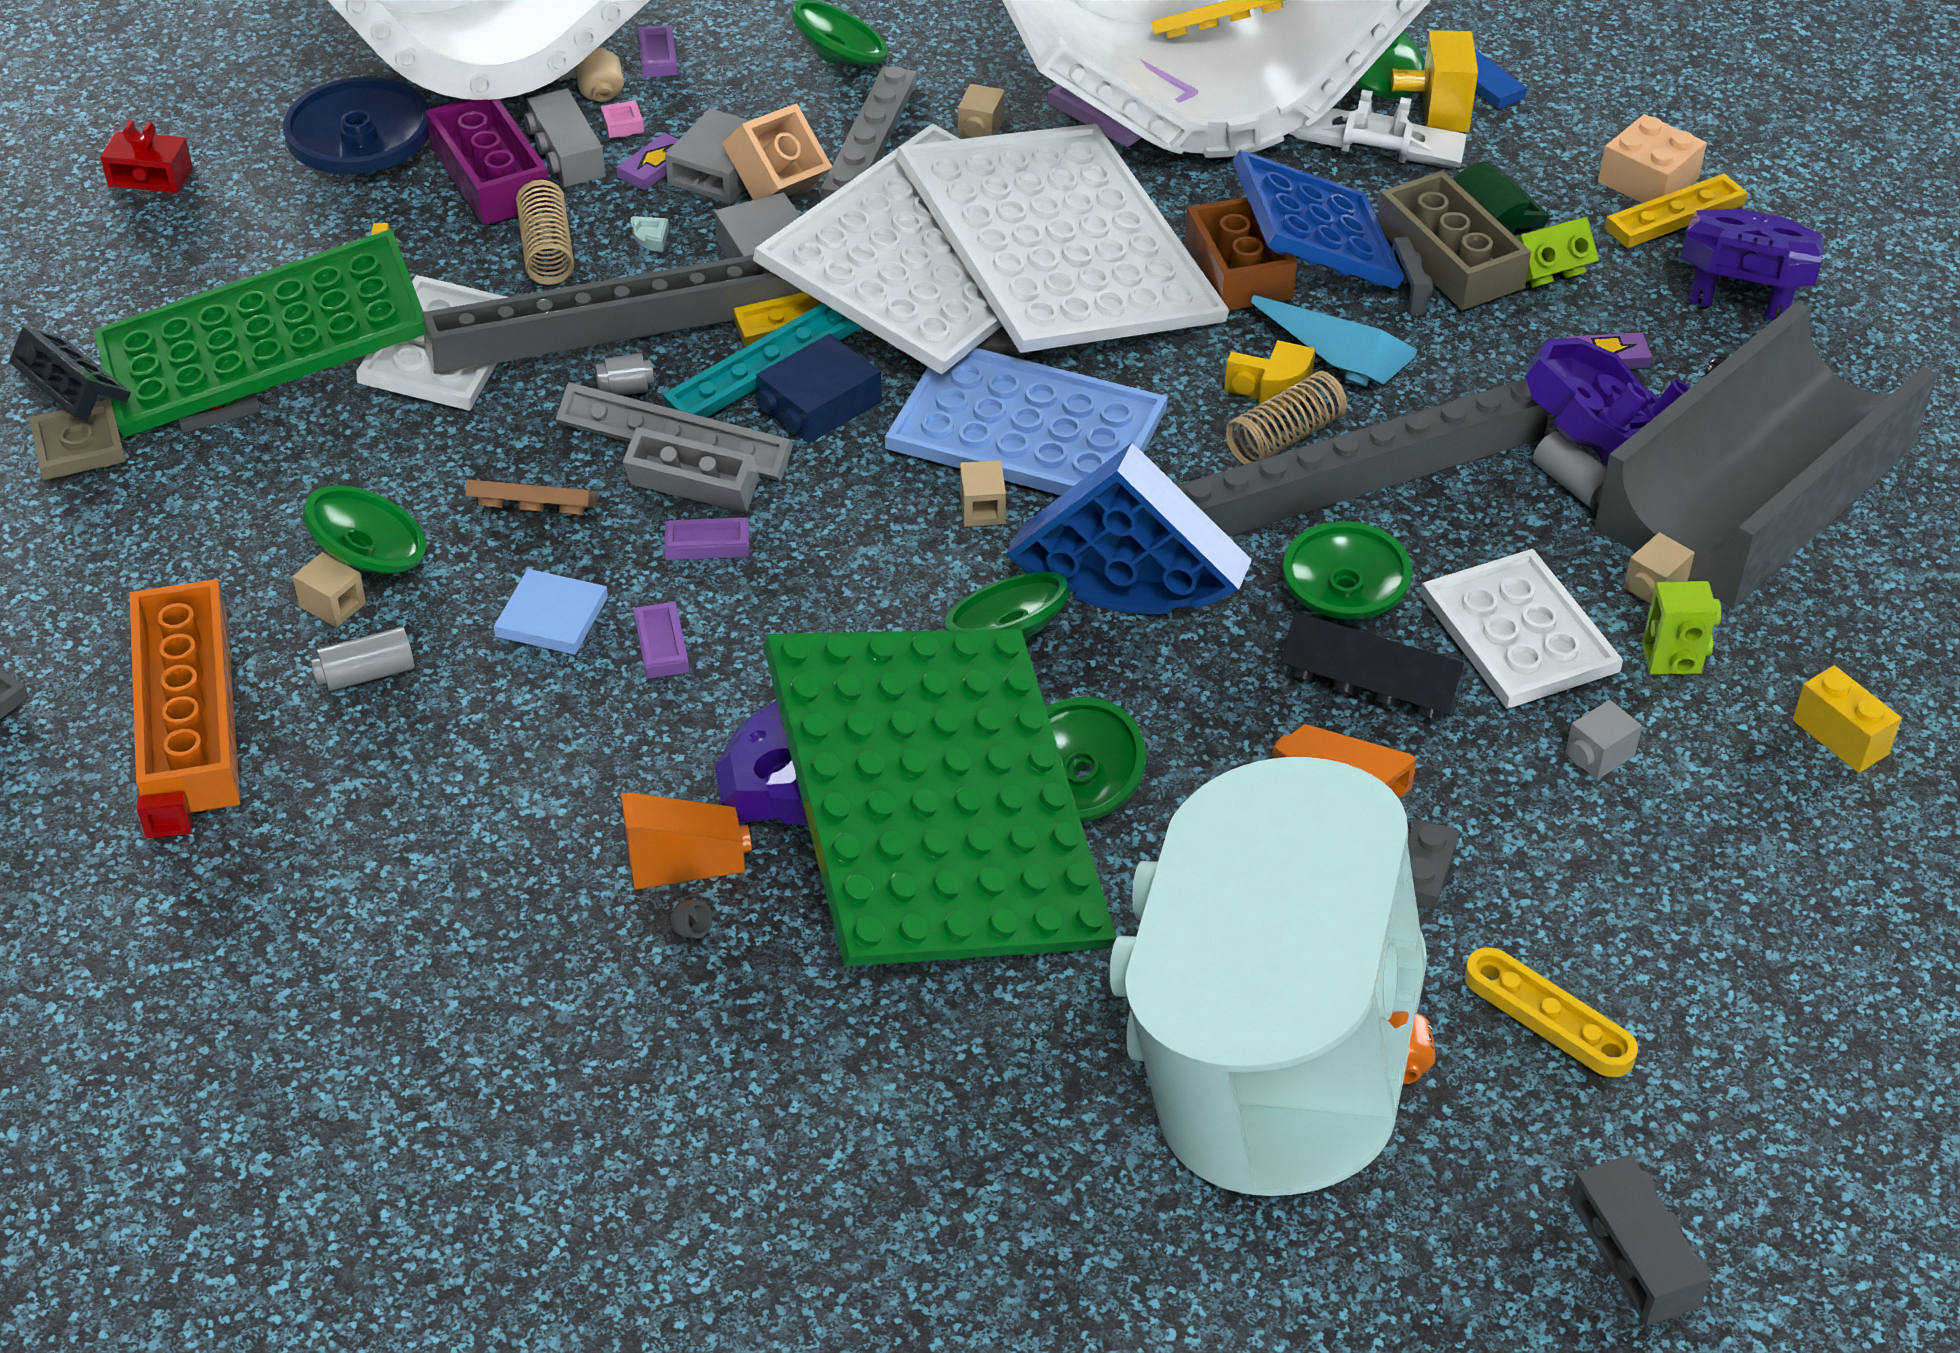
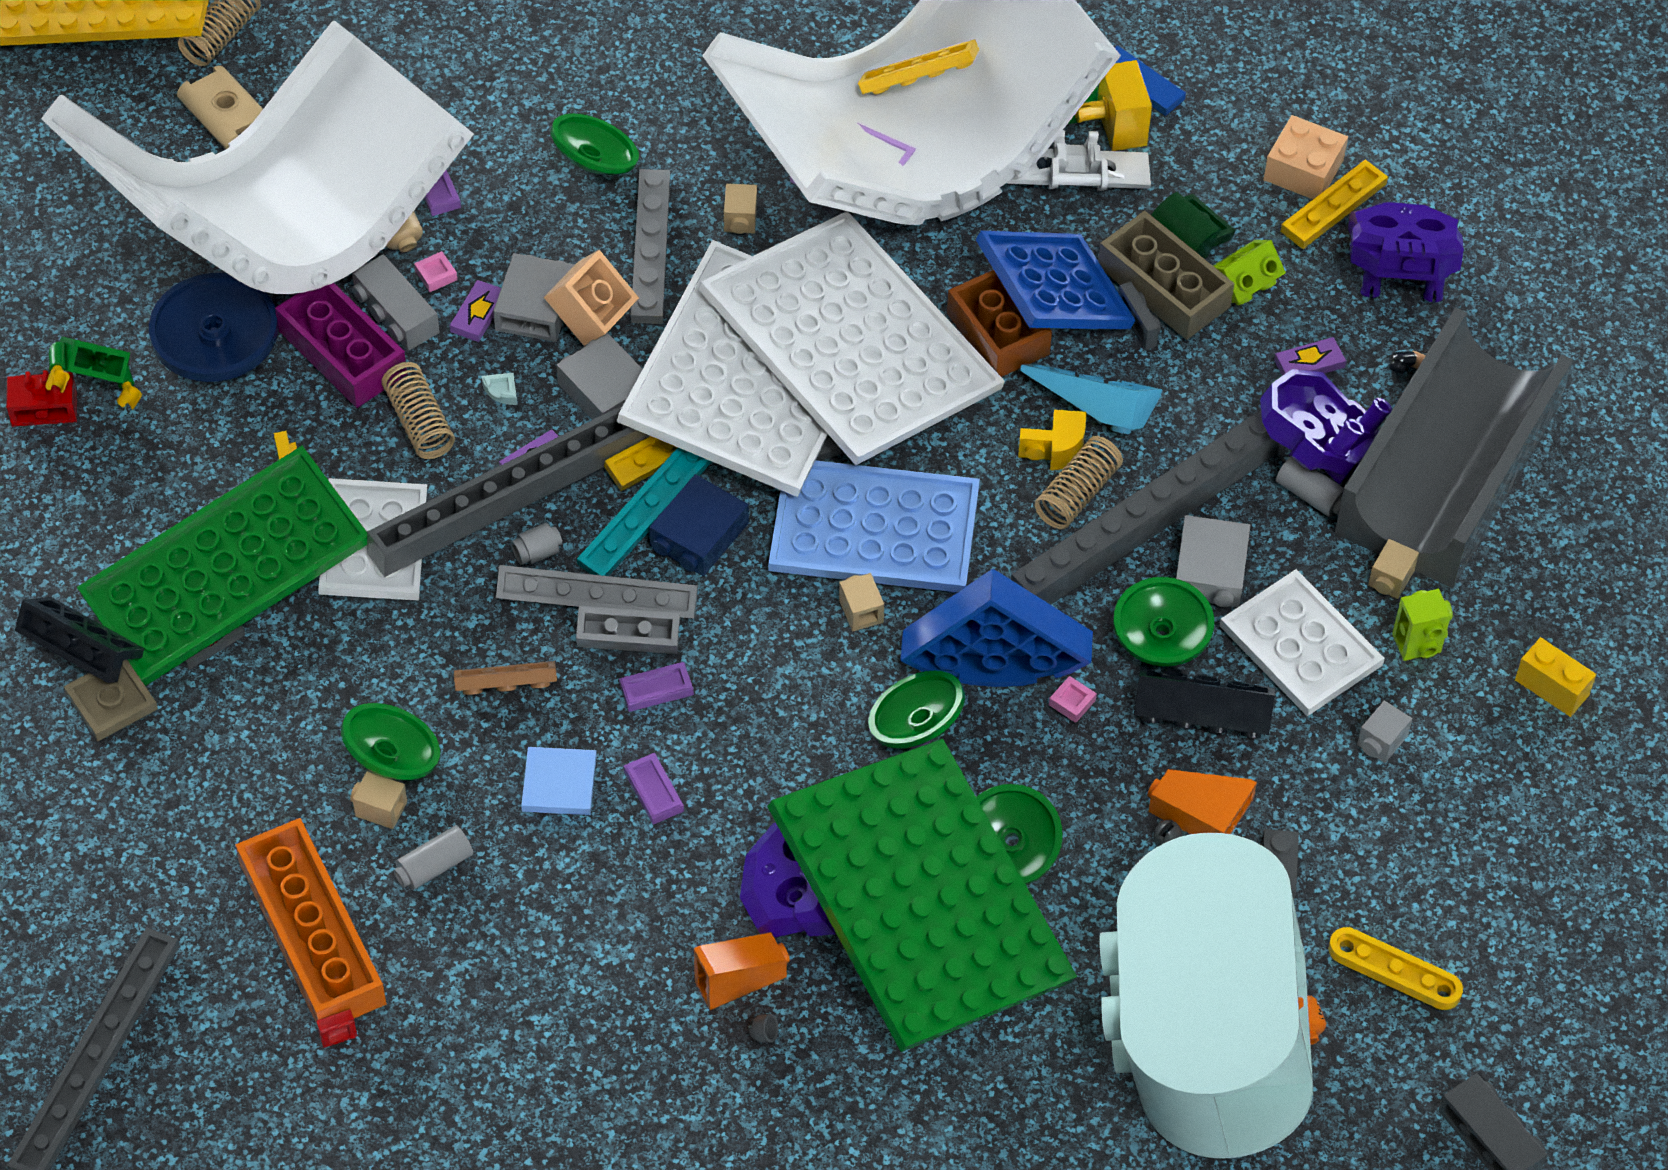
camera: 15 degrees left, 10 degrees up
(208, 130) = (92, 361): none -> green torso
(1209, 636) = (1072, 699): none -> bright pink plate
(1433, 520) = (1214, 558): none -> light grey brick

